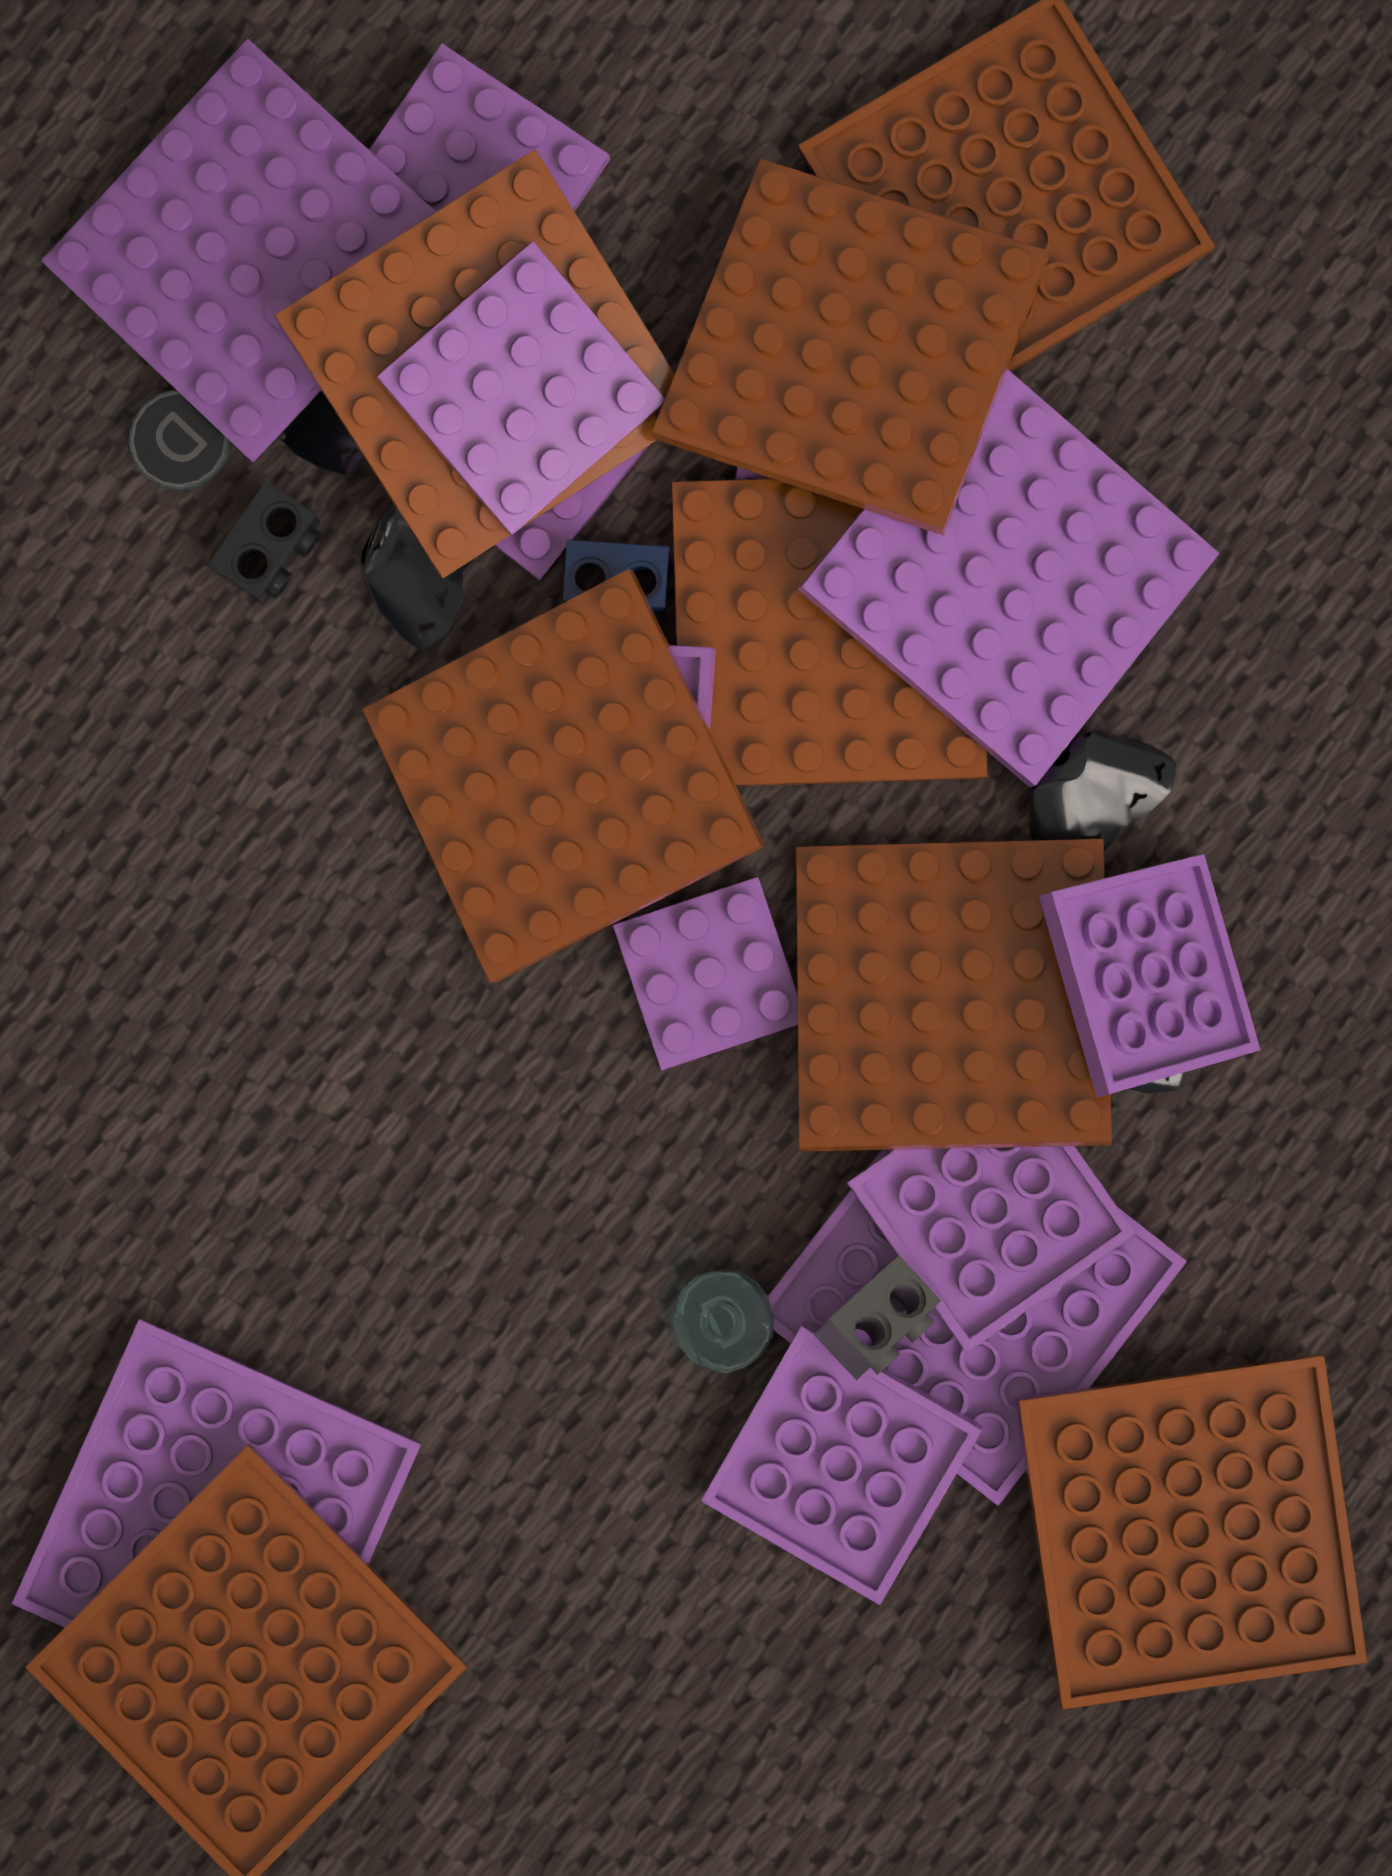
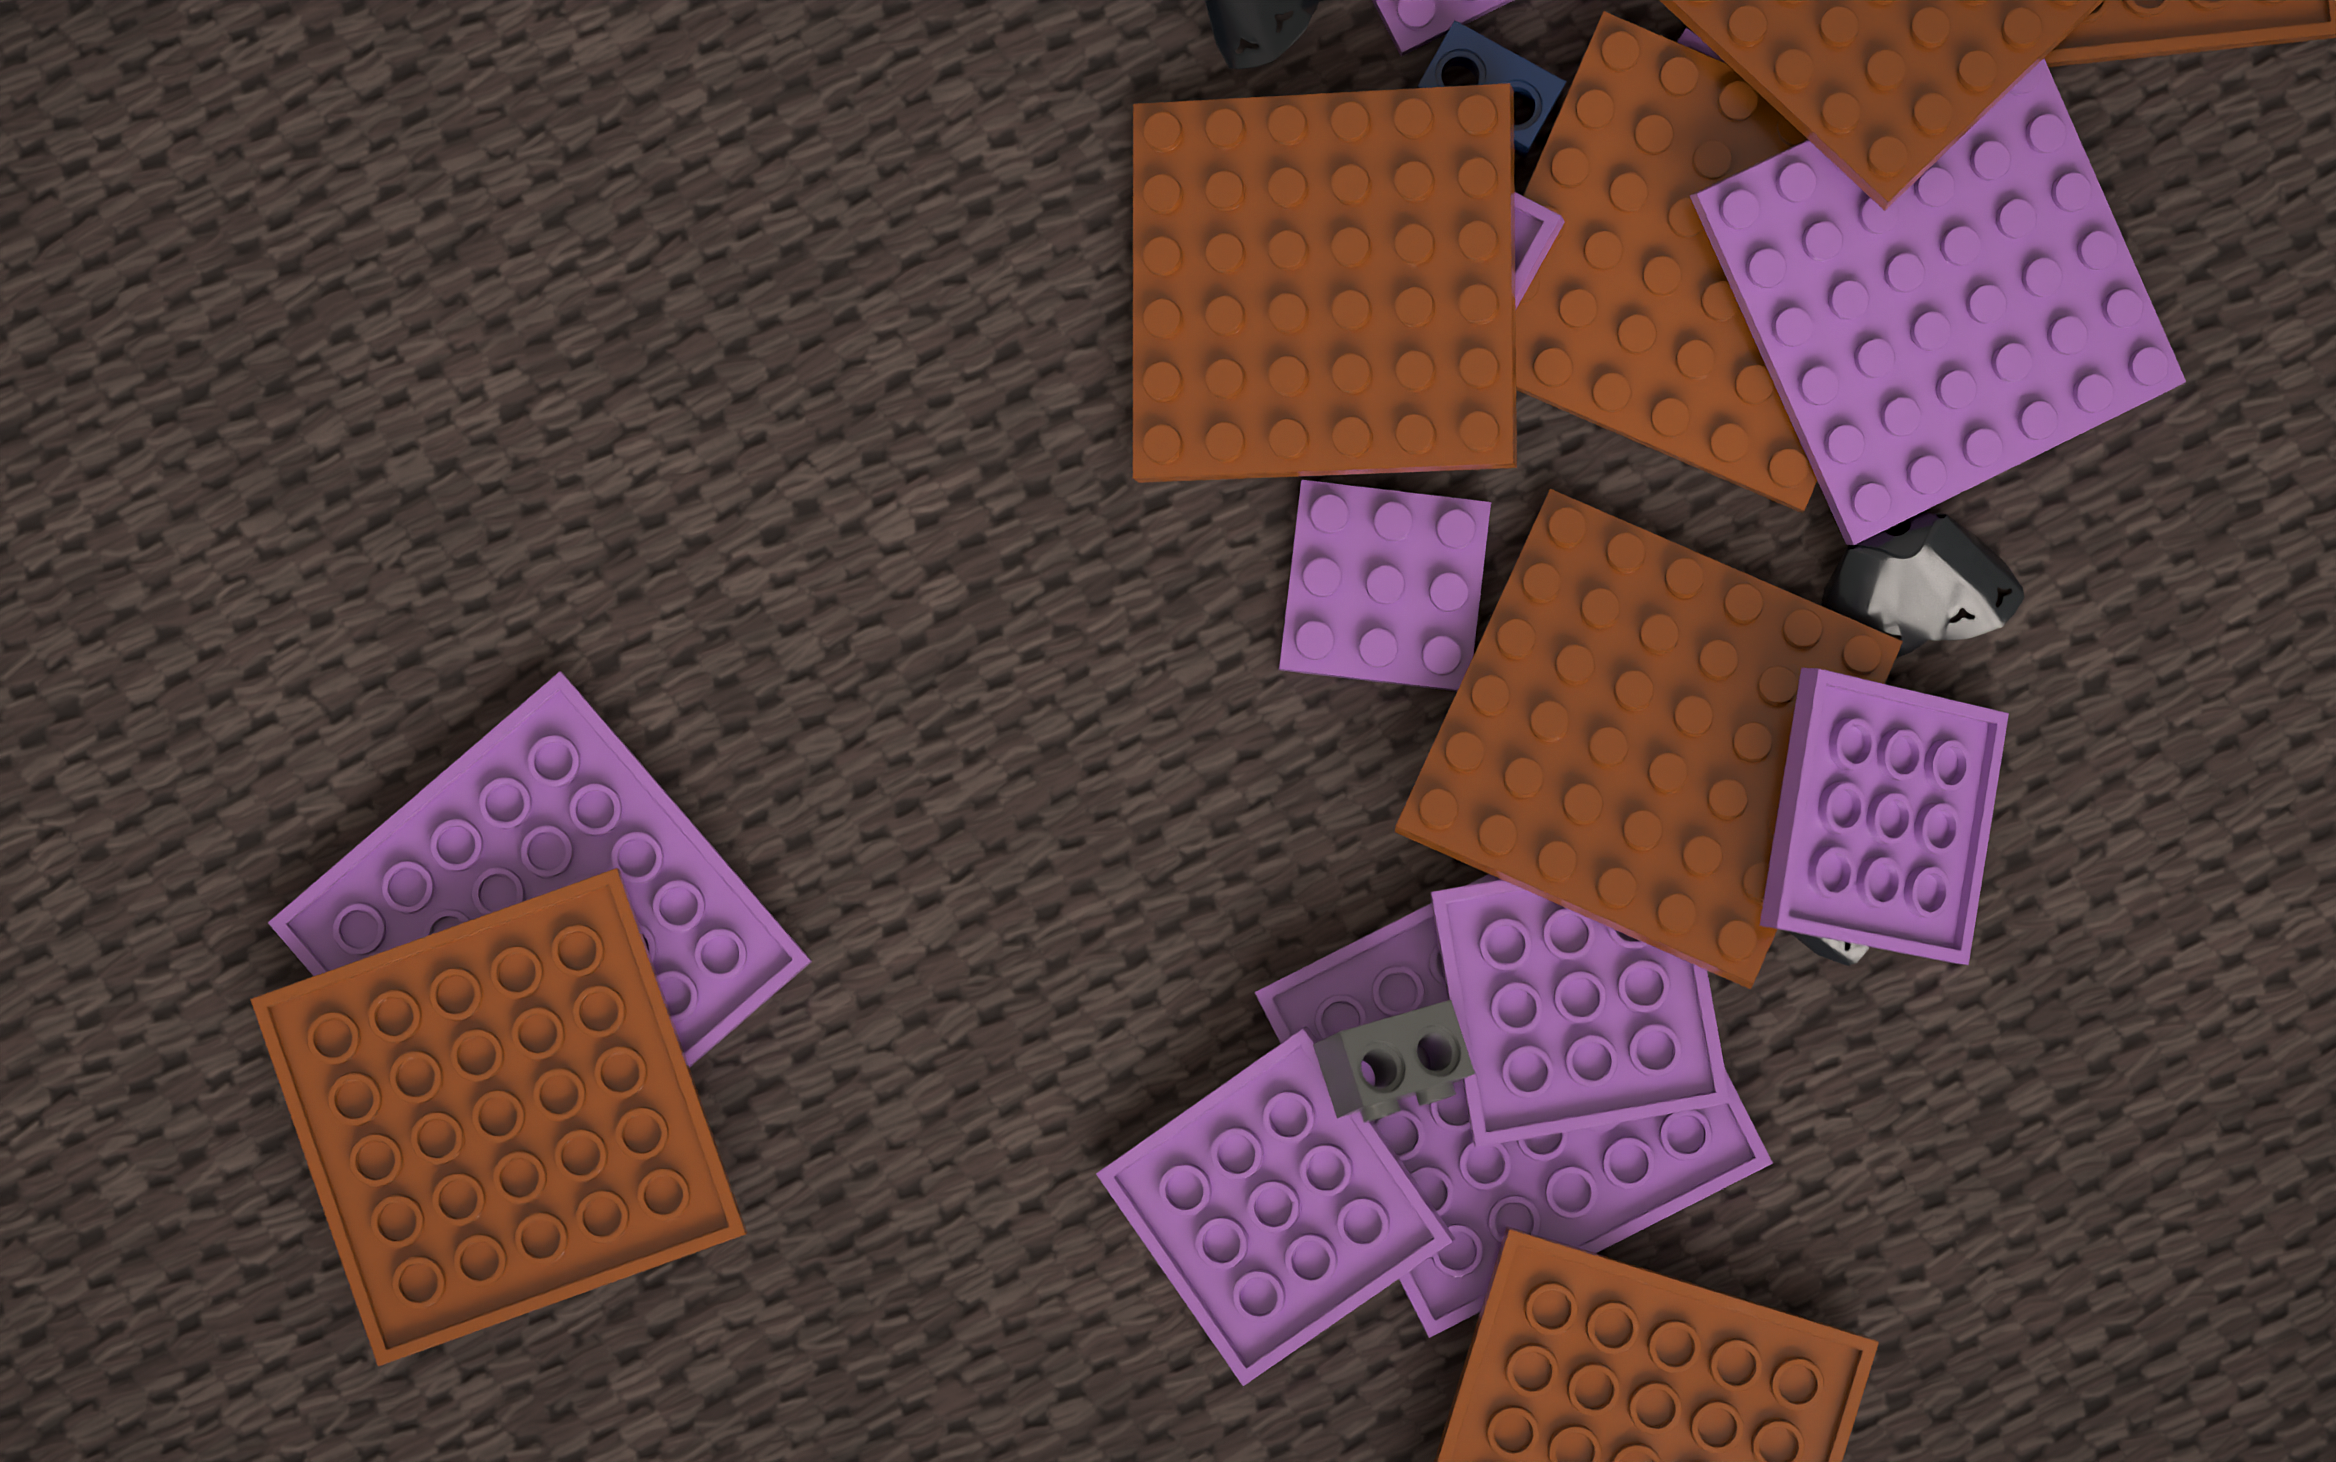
camera: 20 degrees right, 0 degrees up
(723, 1320) = (1217, 983): clear light blue tile -> none

